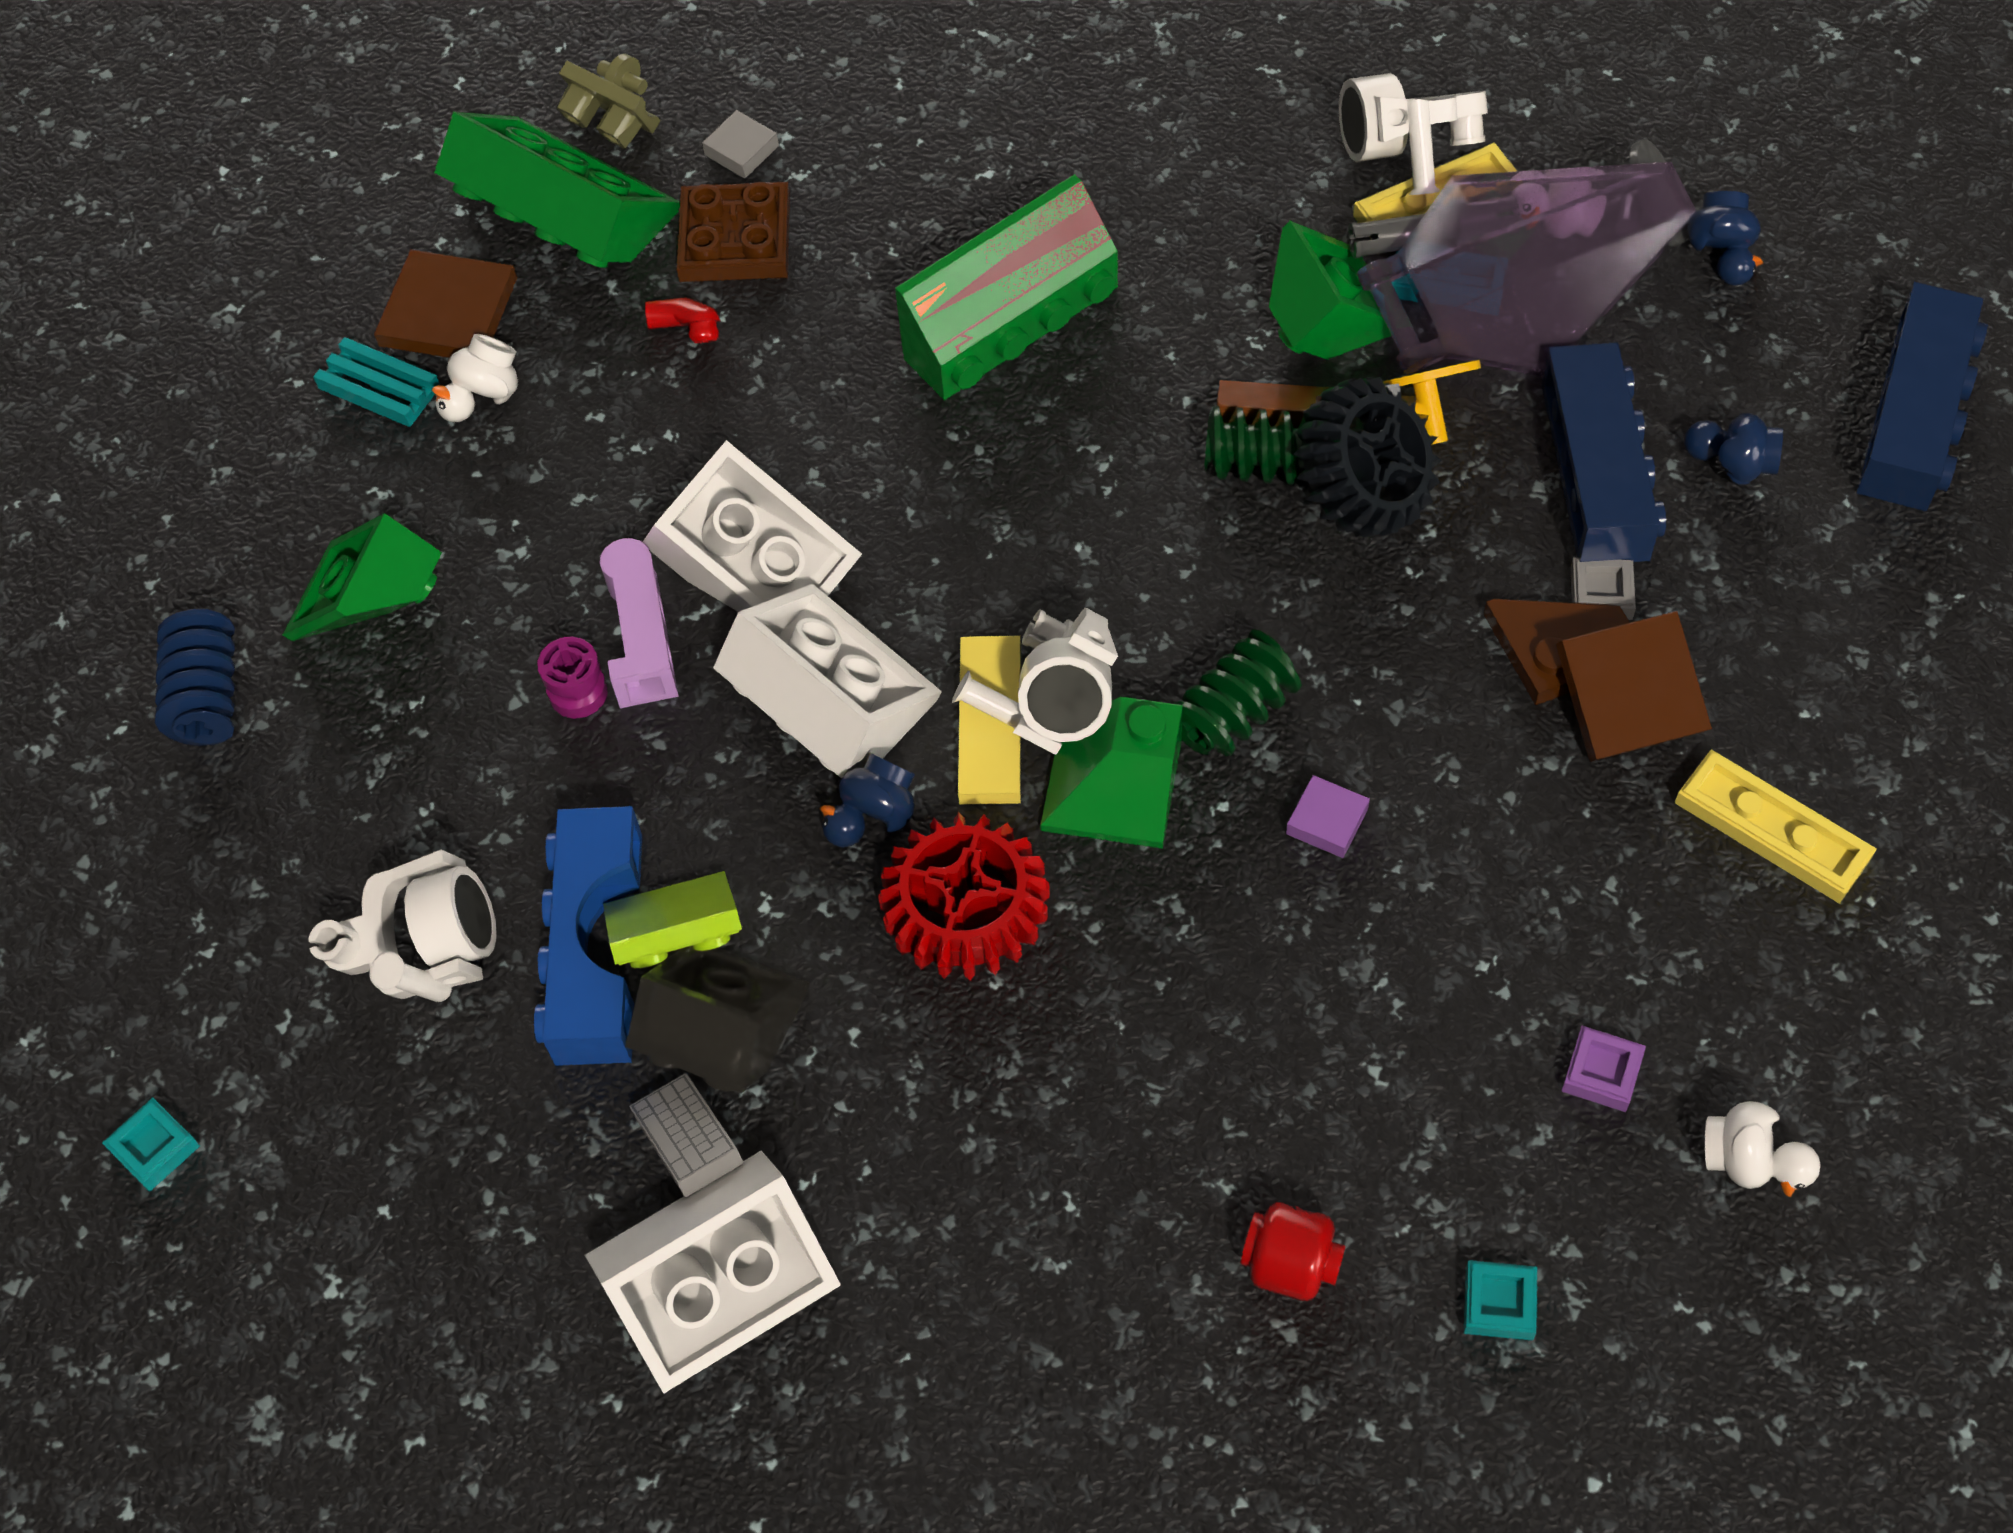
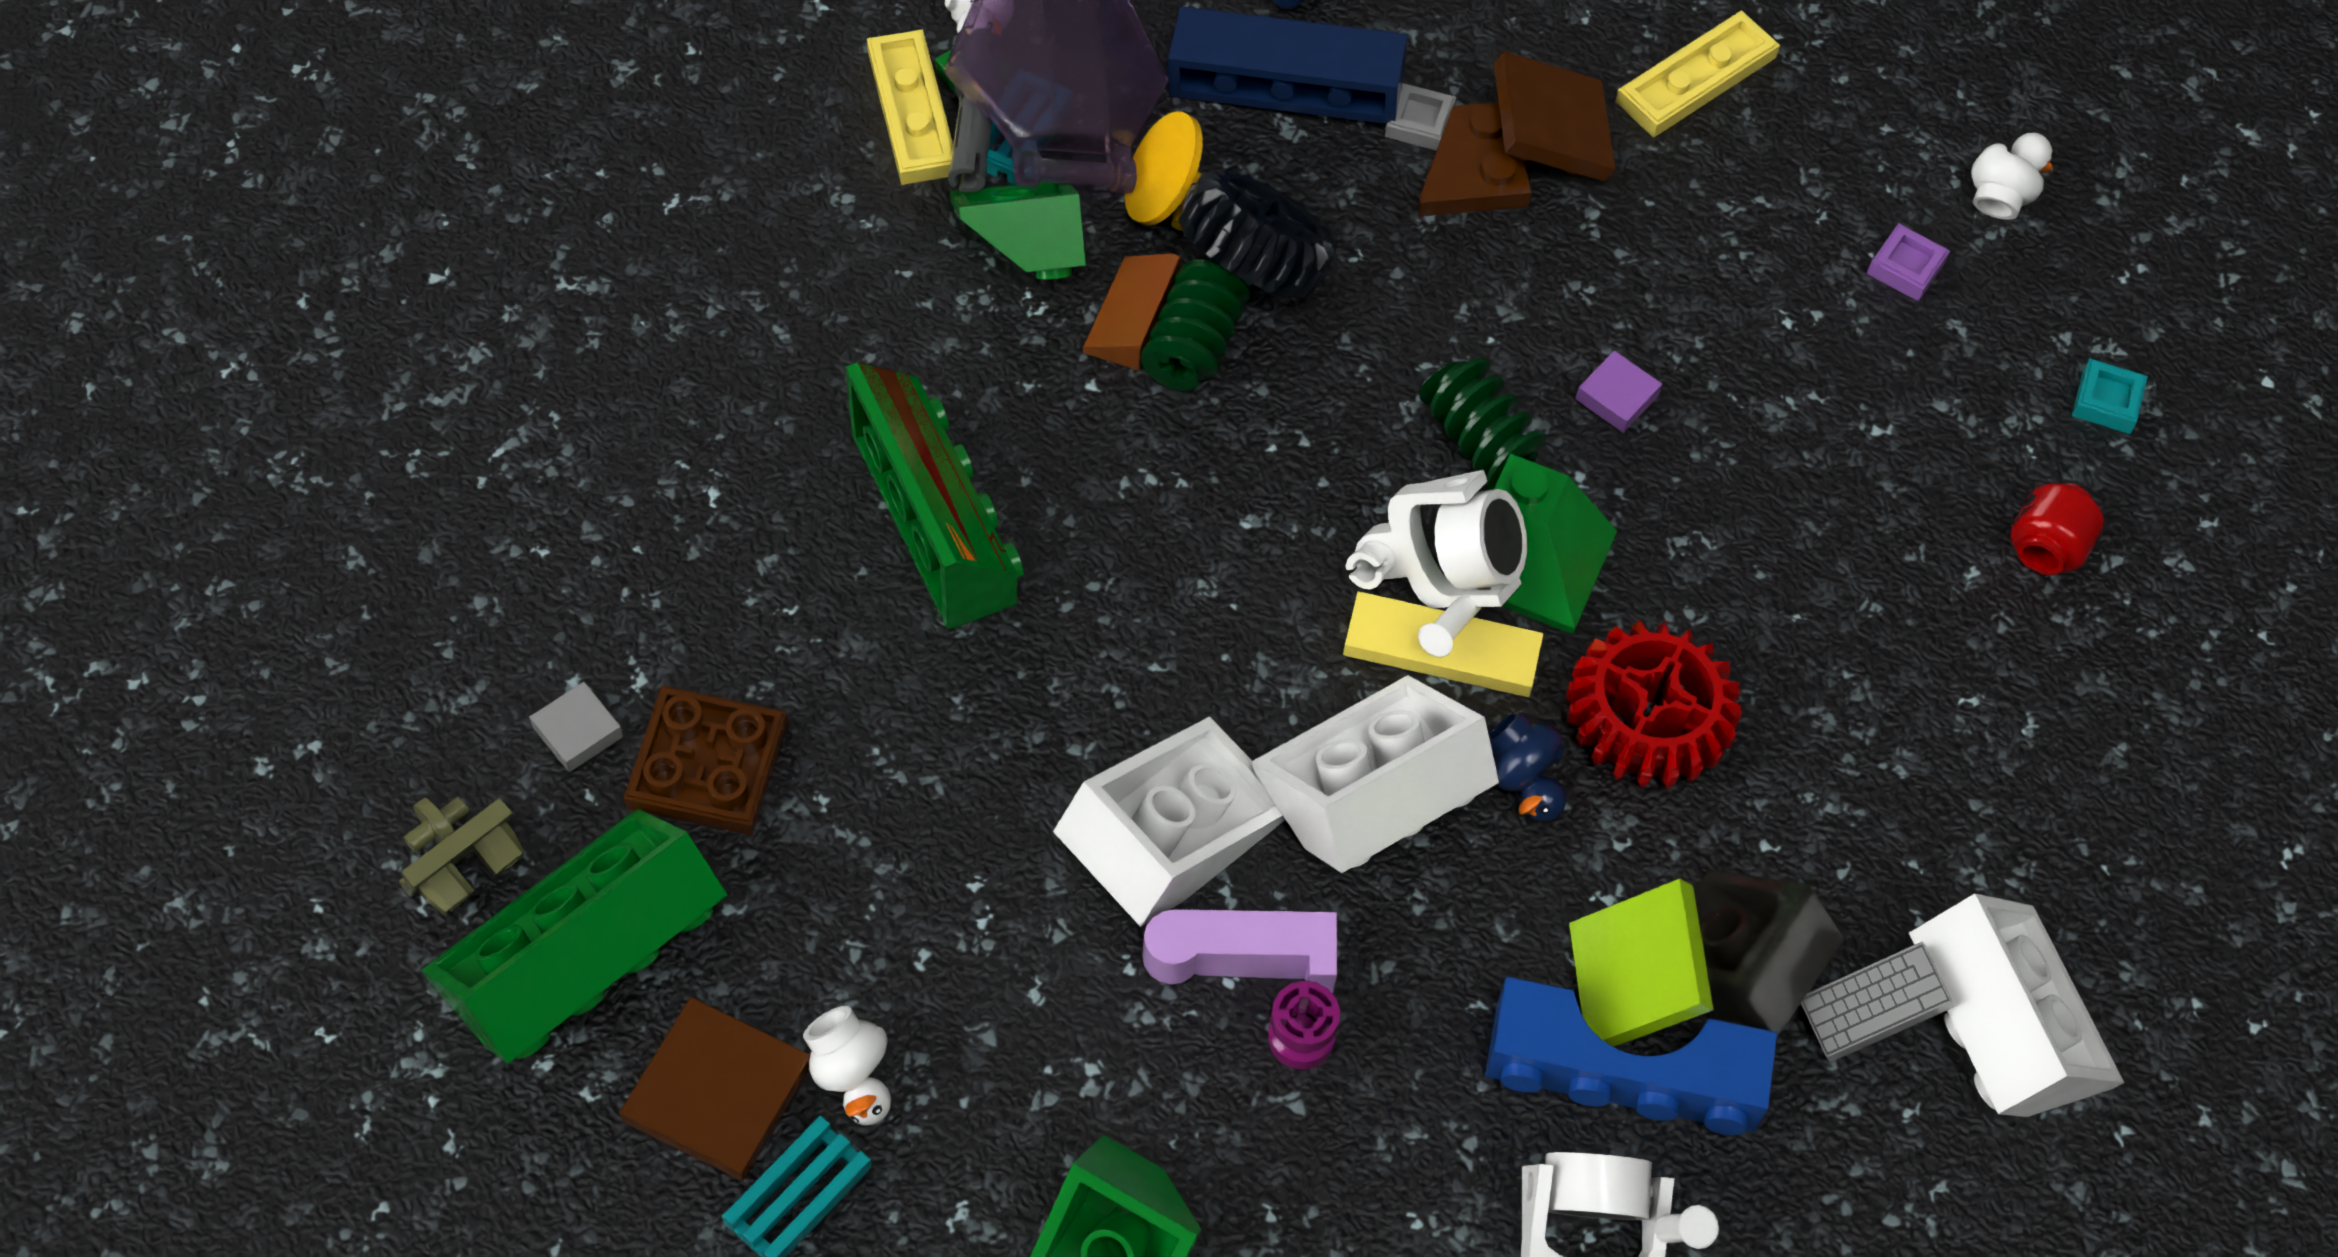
camera: 85 degrees left, 0 degrees up
(684, 312) = (819, 824): red arm -> none
(1379, 117) = (826, 95): white piece -> none

